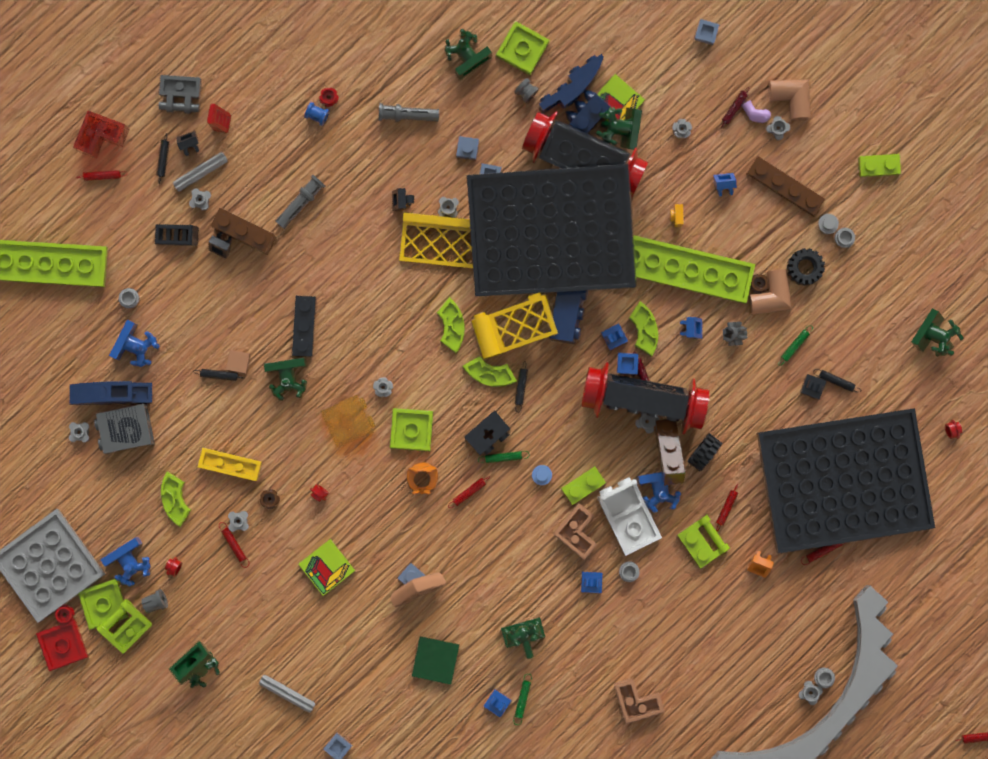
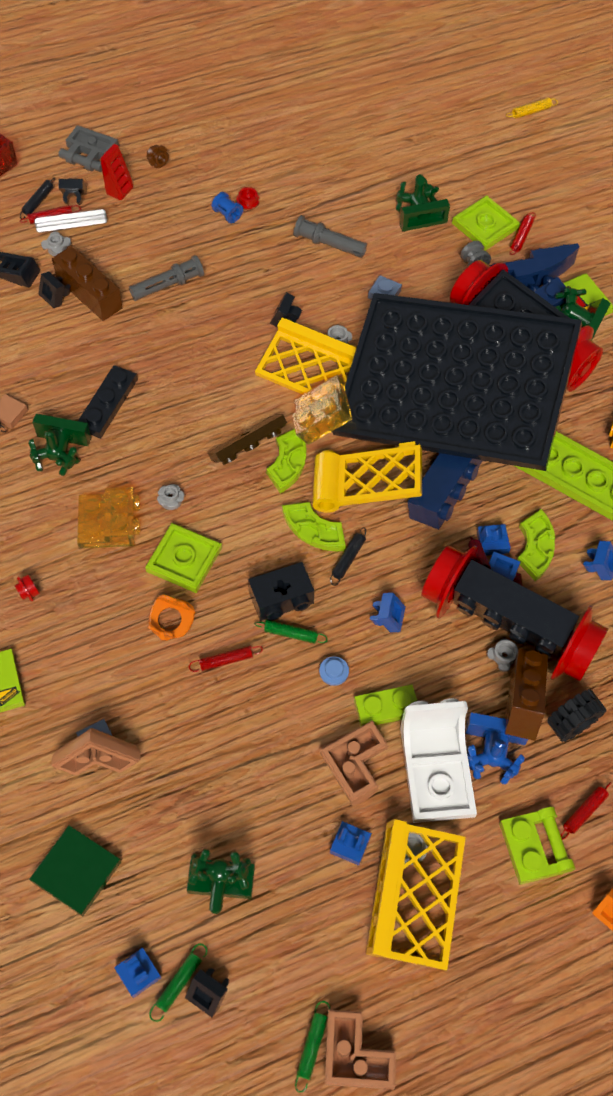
camera: 20 degrees right, 25 degrees down
(181, 171) = (51, 212): none -> red piece
(239, 81) = (153, 156): none -> reddish brown plate
(418, 322) = (248, 440): none -> dark brown tile
(462, 283) = (321, 410): none -> clear yellow plate
(542, 700) = (207, 992): none -> black tile
(554, 48) = (522, 233): none -> red piece
(564, 421) = (390, 612): none -> blue tile
(609, 358) = (481, 556): none -> dark red piece
(611, 709) = (312, 1046): none -> green piece
(625, 607) = (388, 892): none -> yellow fence

